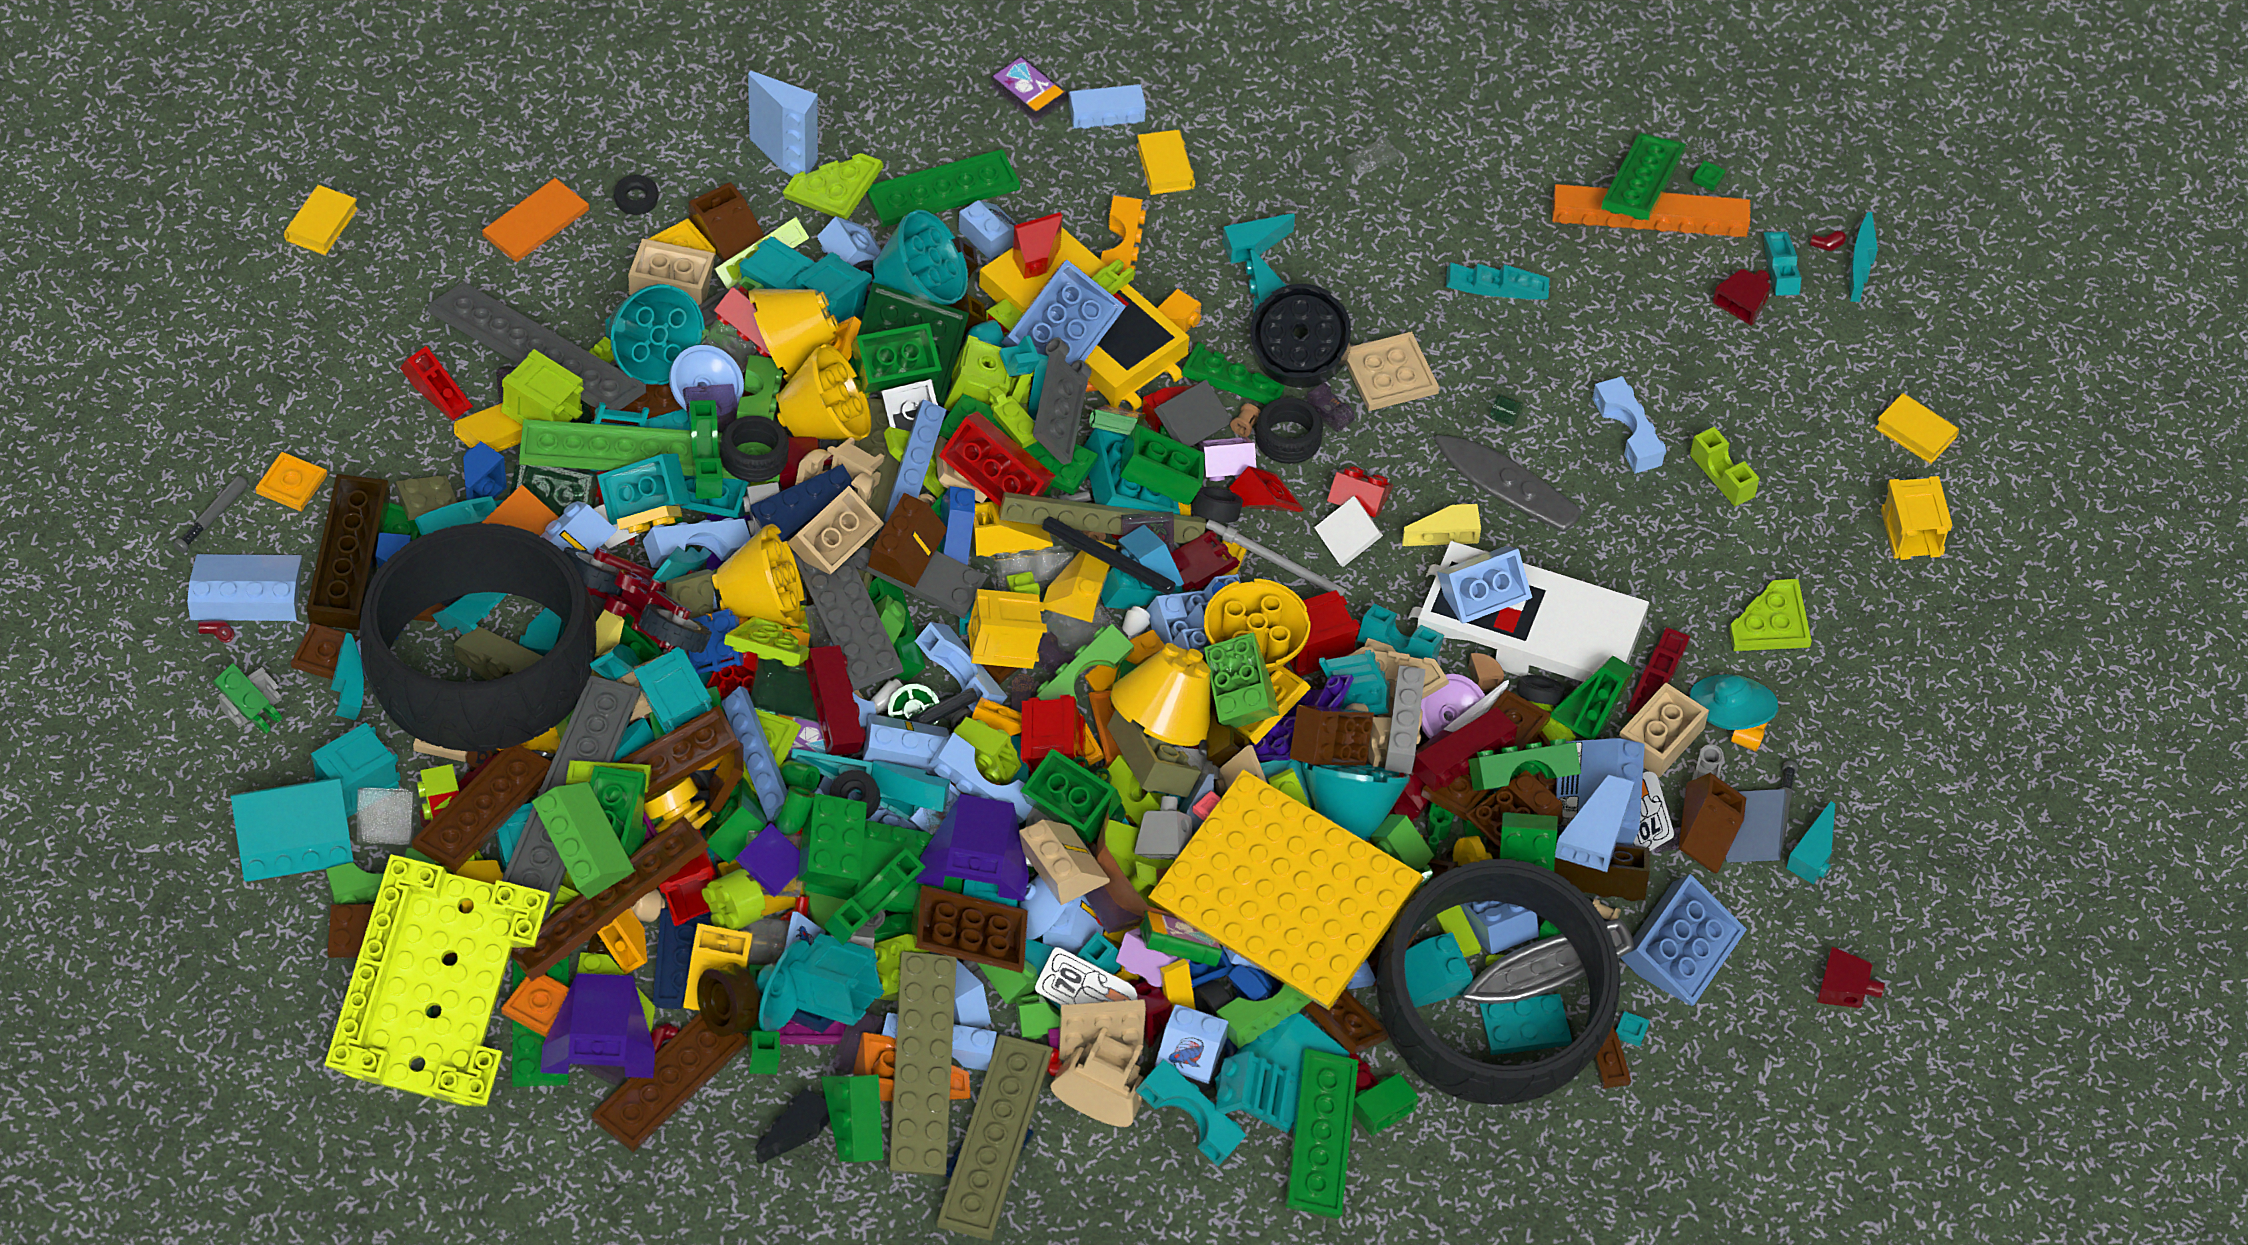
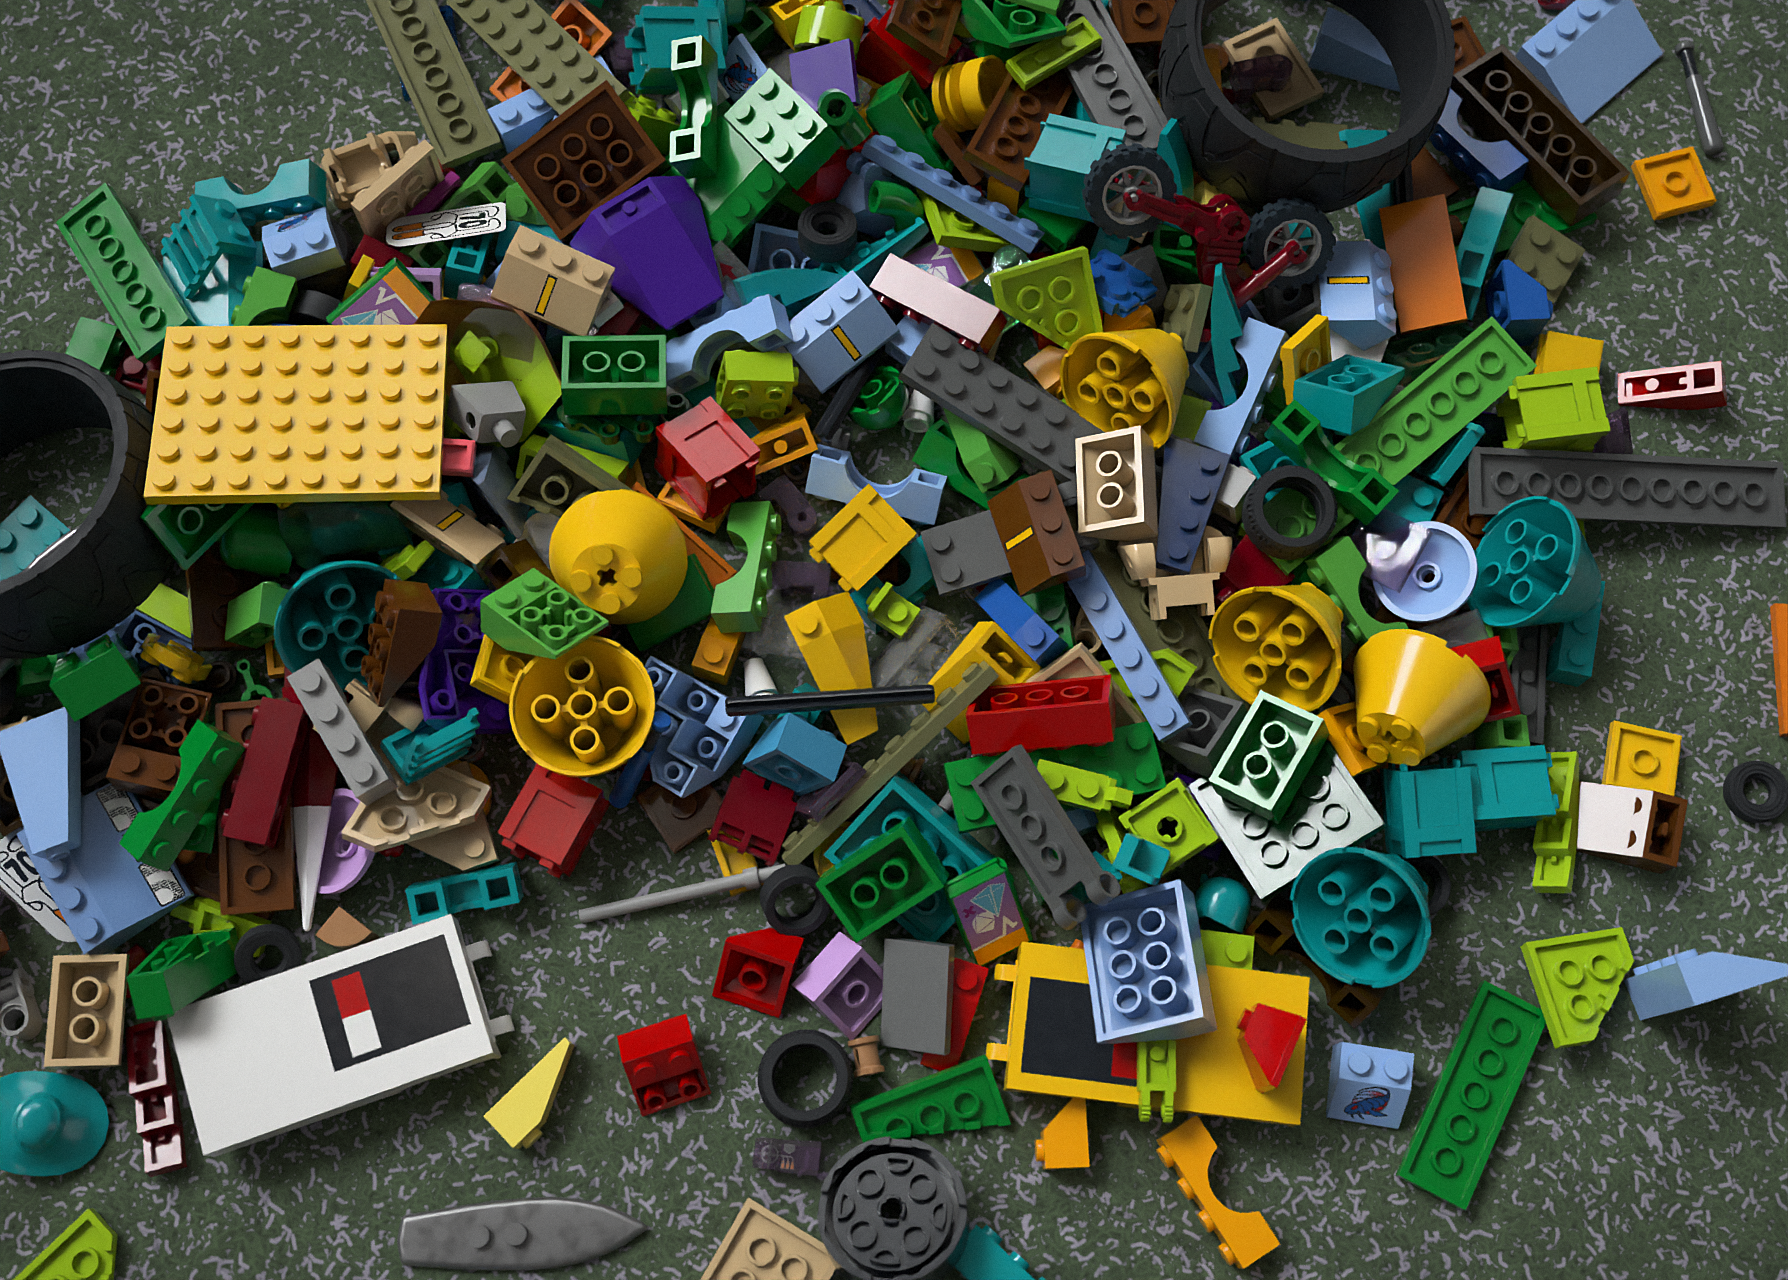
camera: 140 degrees right, 20 degrees up
(673, 266) = (1611, 706): tan slope -> none
(849, 241) = (1479, 918): light blue slope -> none
(1348, 531) = (630, 992): white tile -> none
(1485, 583) = (402, 1010): light blue slope -> none

